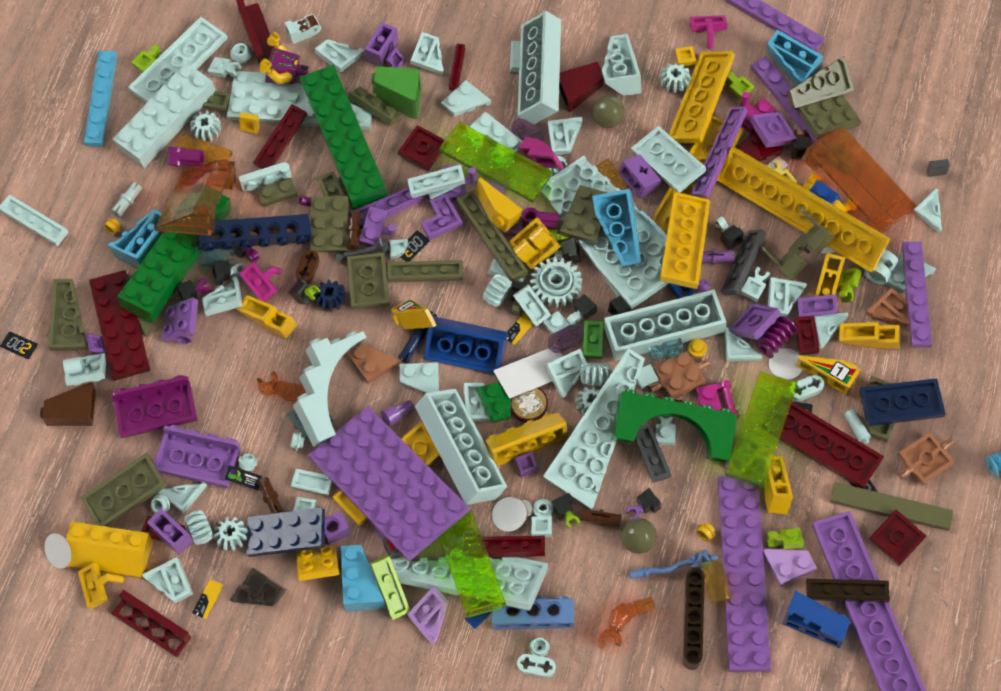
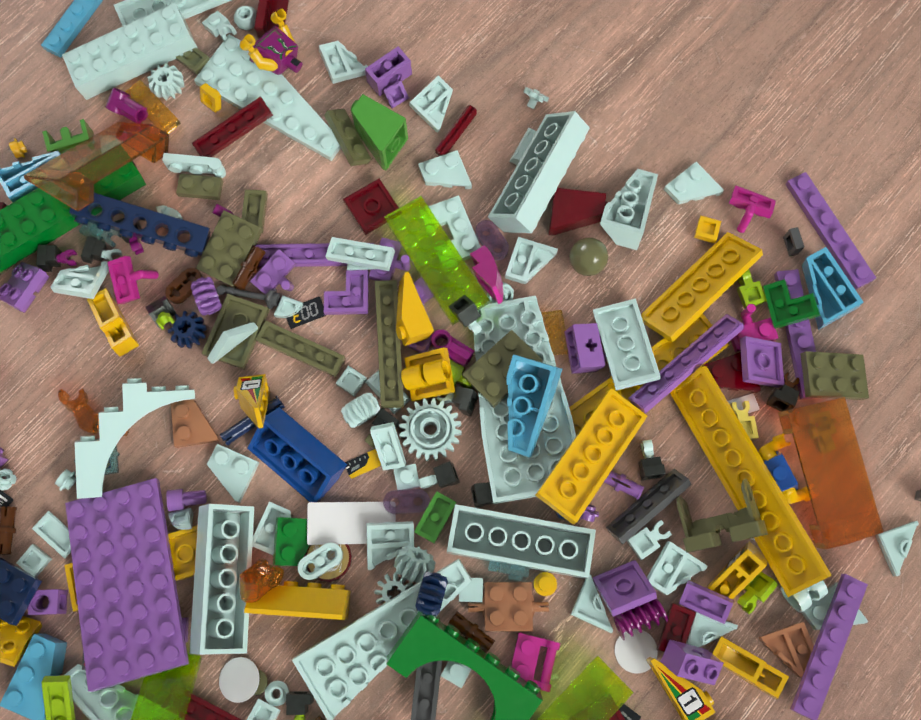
camera: 25 degrees right, 10 degrees up
(126, 199) = (48, 124): light aqua pin -> none
(156, 201) = (67, 141): none -> bright green window
(302, 28) = (320, 18): light aqua leg -> none
(332, 264) = (206, 296): none -> medium lavender gear
(343, 136) = (292, 157): green brick -> none
(370, 285) = (230, 339): none -> light aqua tile
(403, 426) = (182, 519): none -> light aqua tile
(476, 277) = (351, 381): none -> light aqua tile
(490, 431) = (259, 580): none -> clear orange piece
(504, 17) = (534, 97): none -> light aqua plant
(525, 405) = (320, 560): none -> light aqua plate
(526, 464) = (288, 628): medium lavender tile -> none
(541, 185) = (466, 313): none -> pearl dark grey piece
(622, 373) = (431, 593): none -> dark blue gear
(658, 30) = (692, 185): none -> light aqua wing
(675, 77) = (675, 251): light aqua gear -> none
(753, 38) = (793, 241): none -> dark grey tile
(771, 86) = (788, 311): none -> green plate
(808, 391) = (643, 701): light aqua beam -> none
(824, 84) = (845, 336): wing -> none
(827, 345) = (692, 662): none -> medium lavender brick

